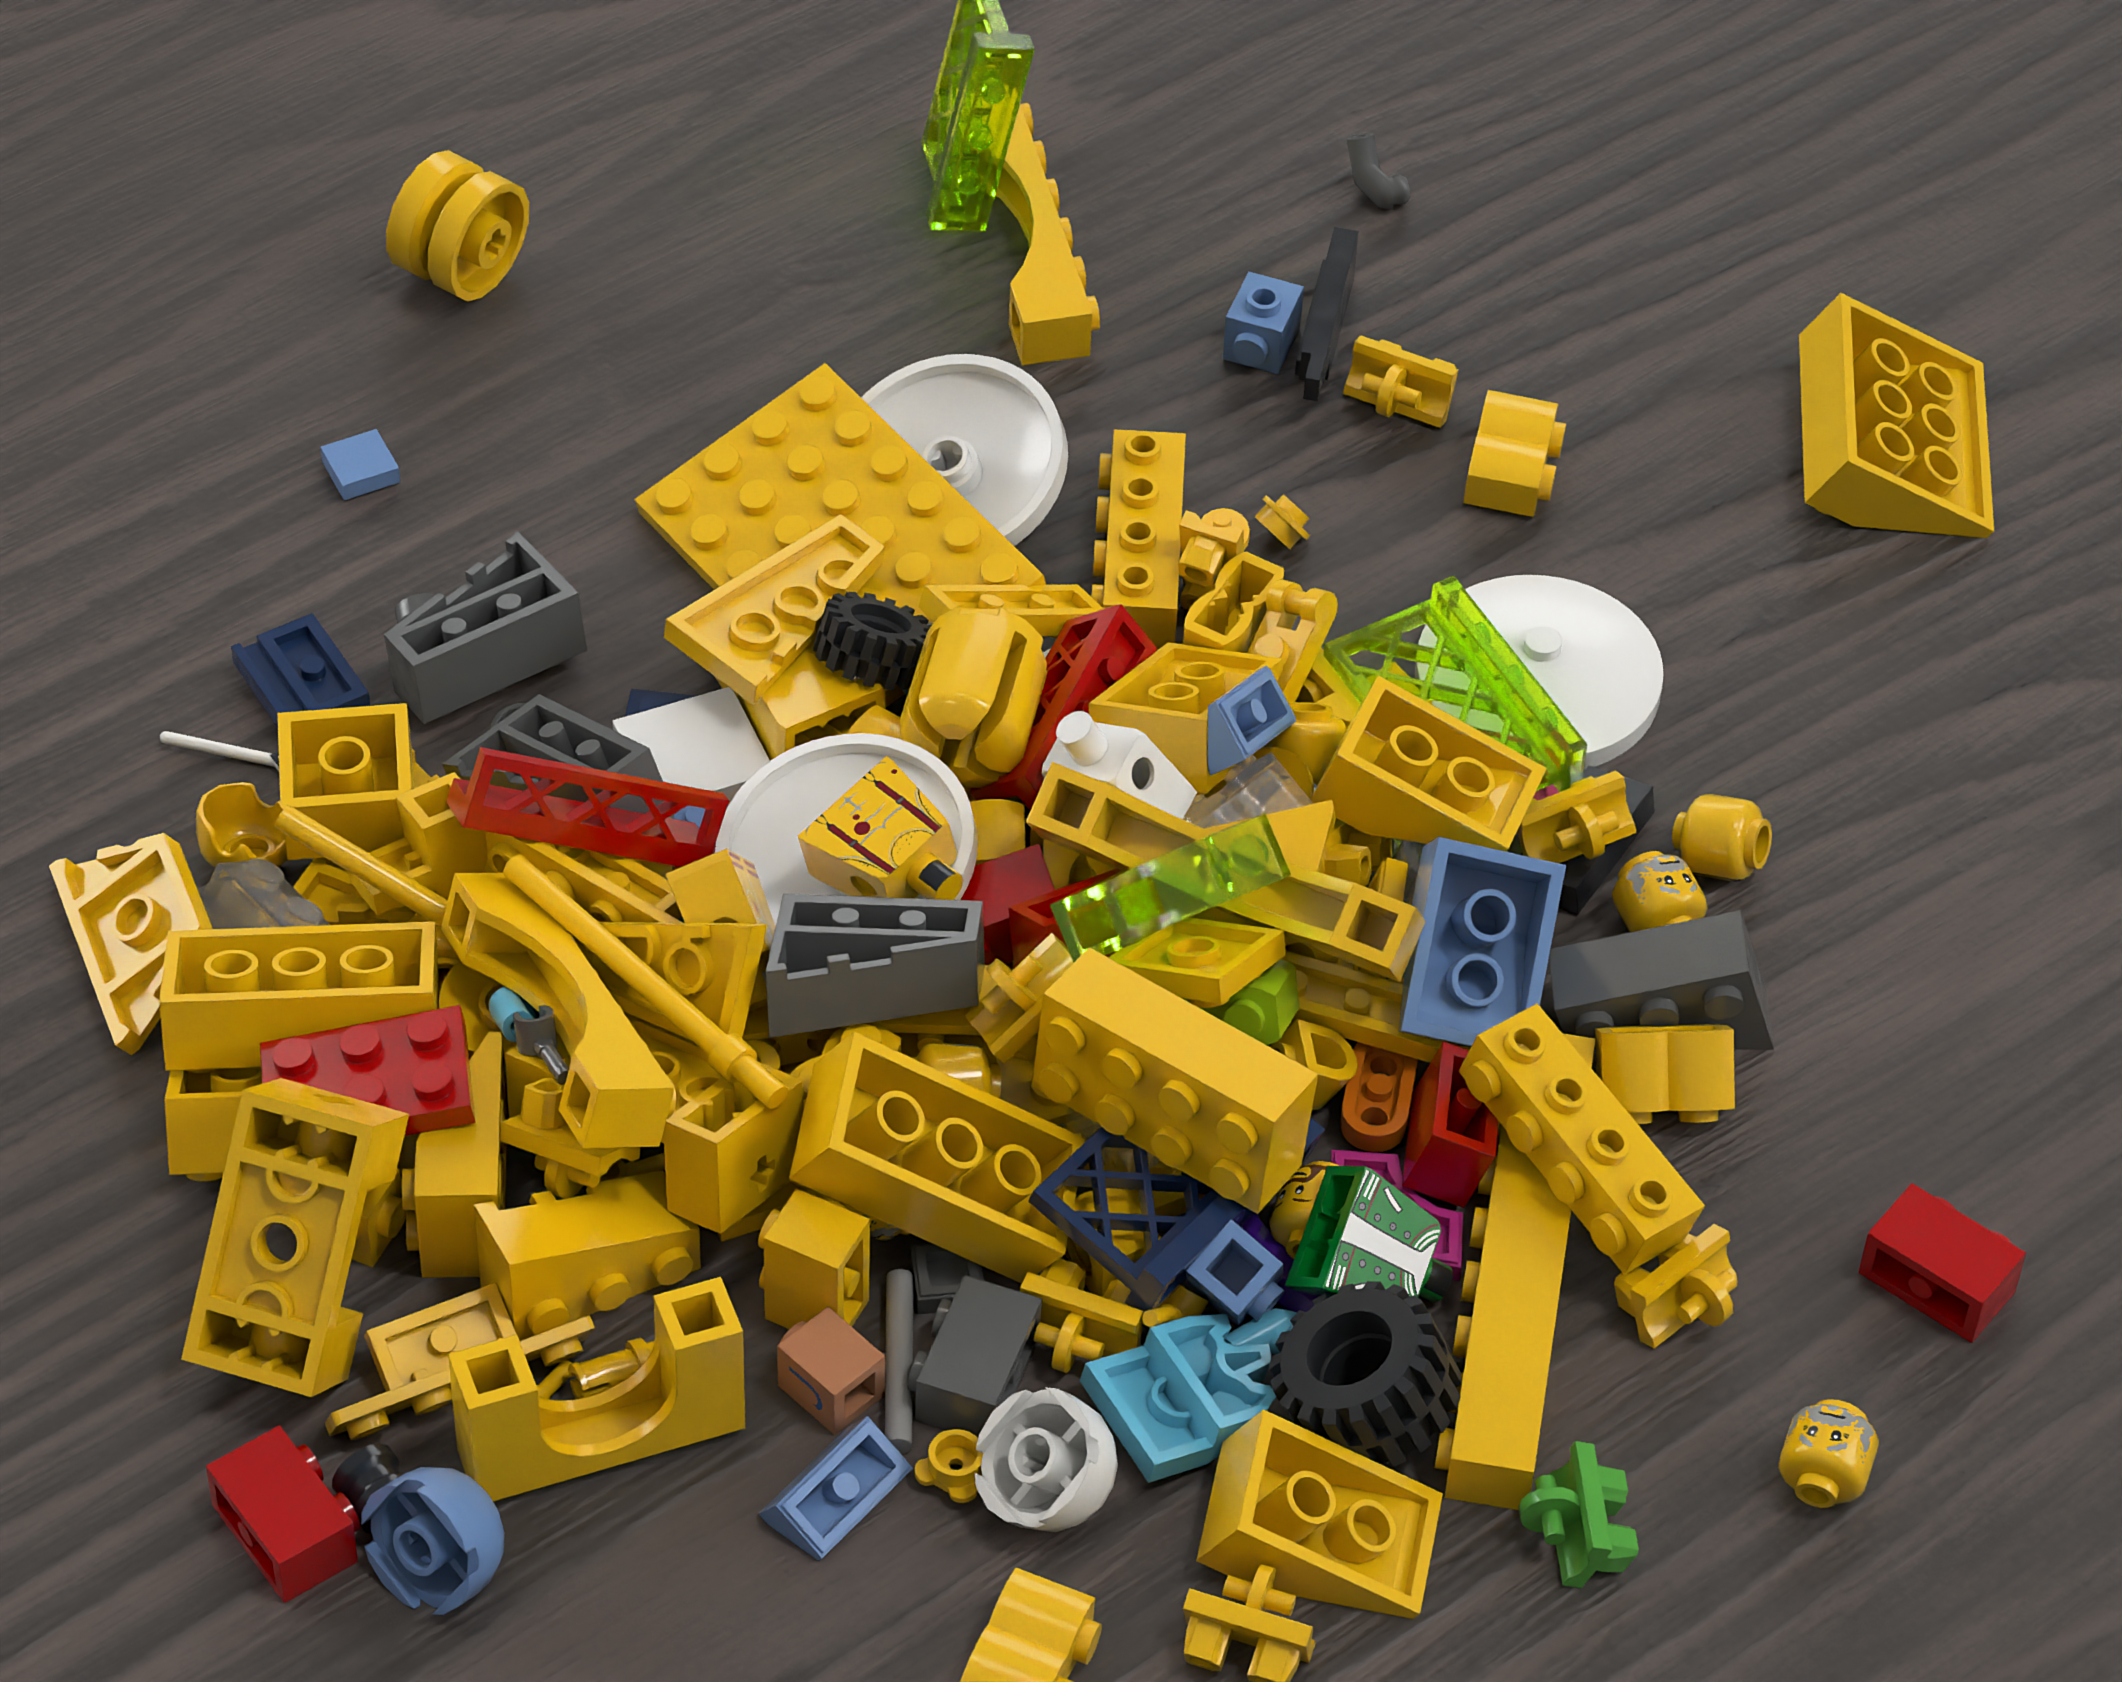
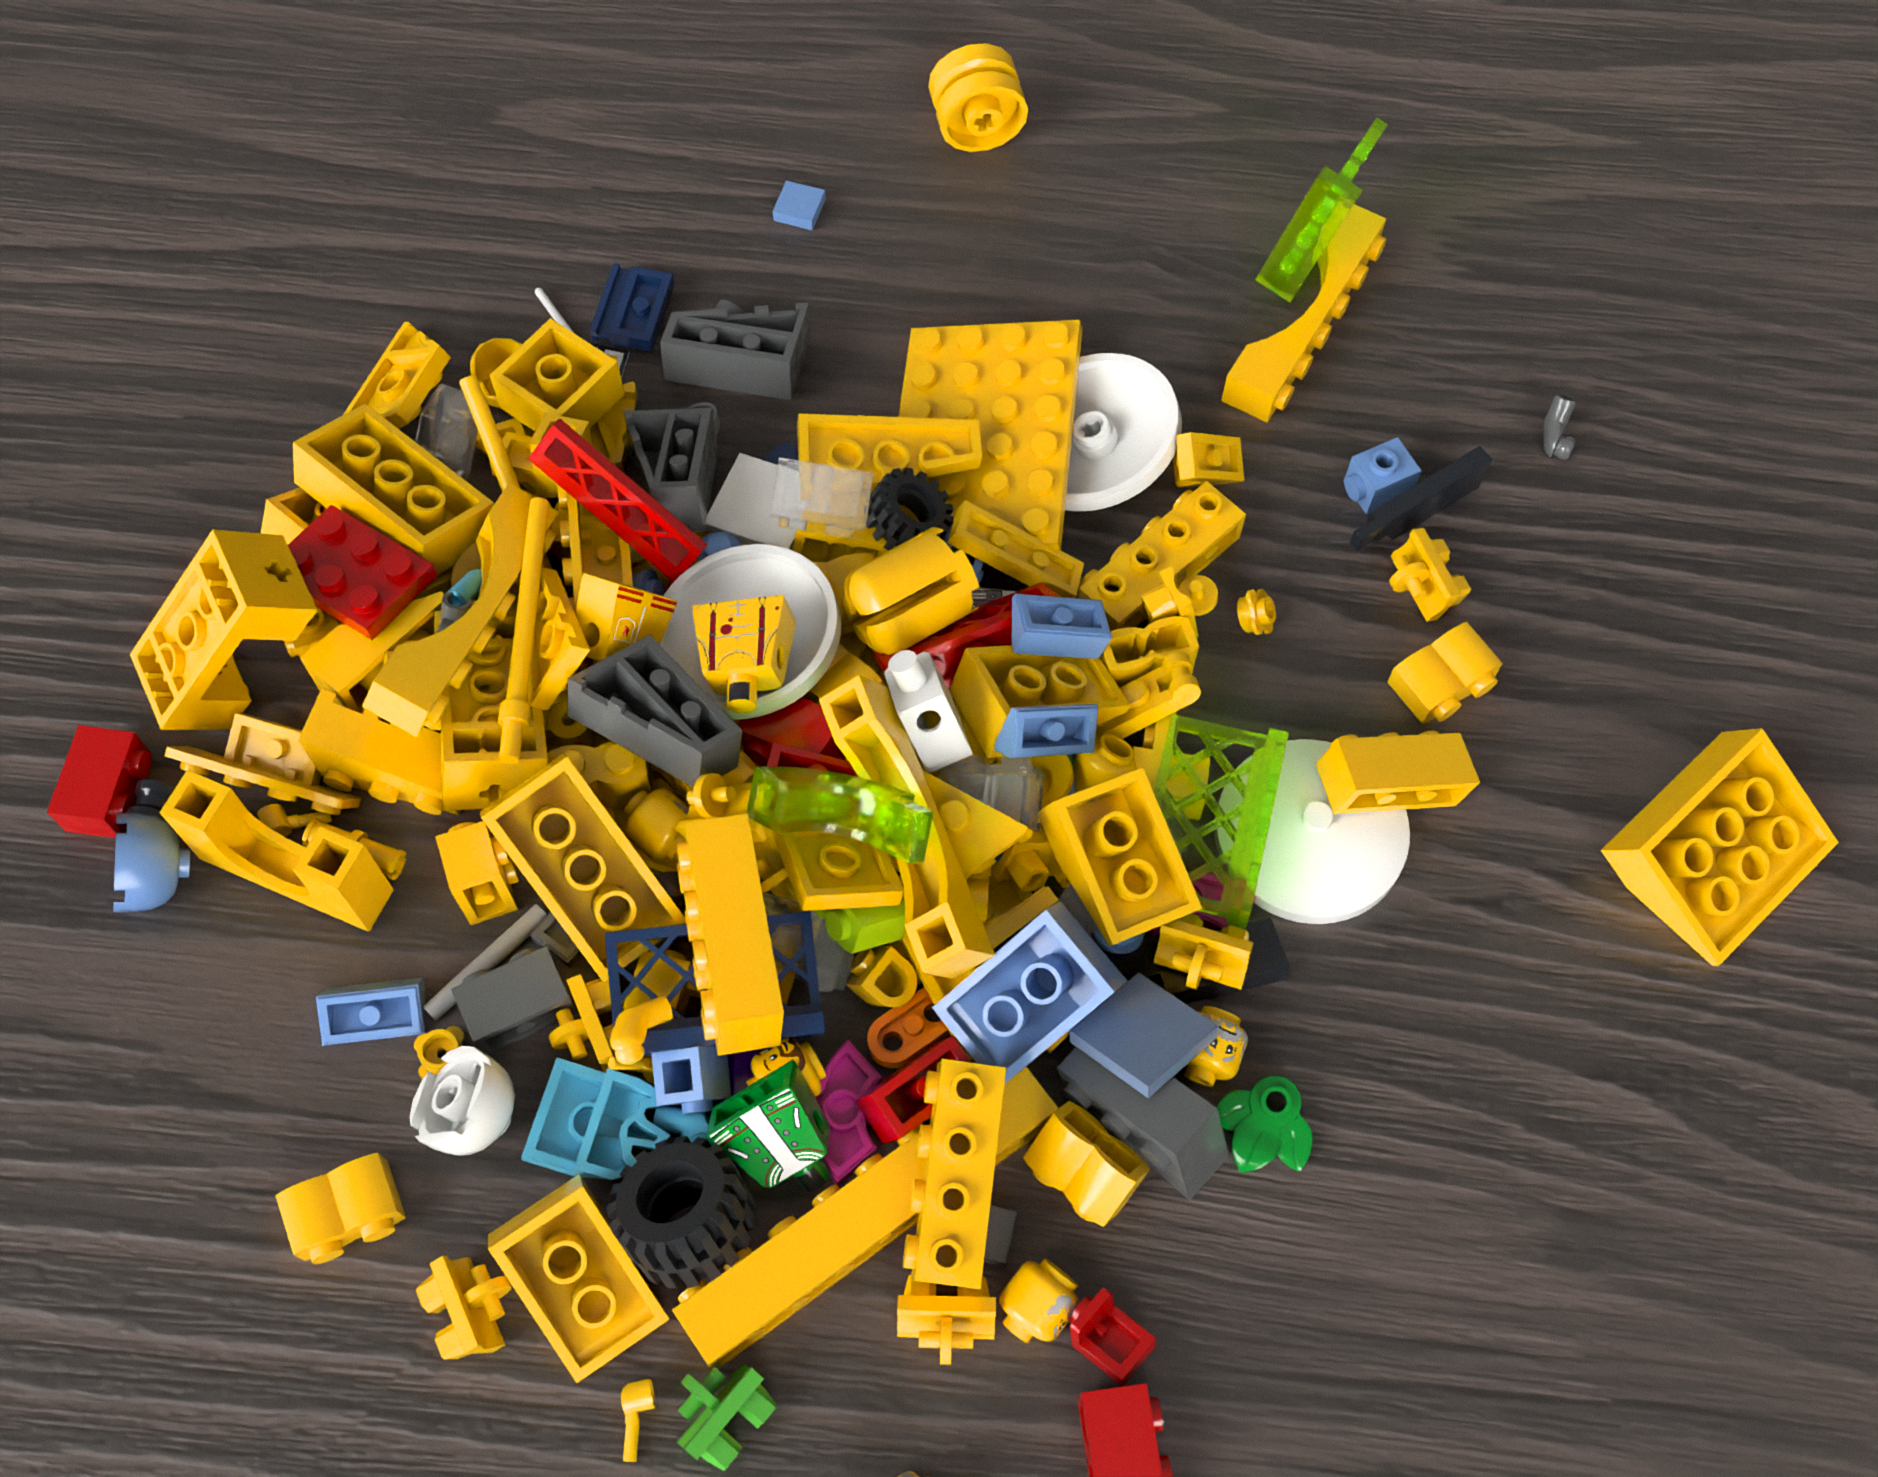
camera: 45 degrees right, 15 degrees up
(790, 669) = (820, 496): none -> clear brick
(830, 1370) = (435, 937): nougat brick -> none
(1087, 418) = (1207, 458): none -> yellow slope
(1147, 631) = (1059, 626): none -> medium blue slope
(1162, 1244) = (632, 1027): none -> yellow arm
(1488, 1582) = (635, 1398): none -> yellow hand
(1570, 556) = (1396, 772): none -> yellow brick
(1612, 915) = (1143, 1034): none -> sand blue tile
(1722, 837) = (1298, 1036): yellow head -> none
(1750, 1205) = (1038, 1301): none -> yellow head
(1785, 934) = (1264, 1133): none -> green plate
(1836, 1190) = (1109, 1337): none -> red bracket

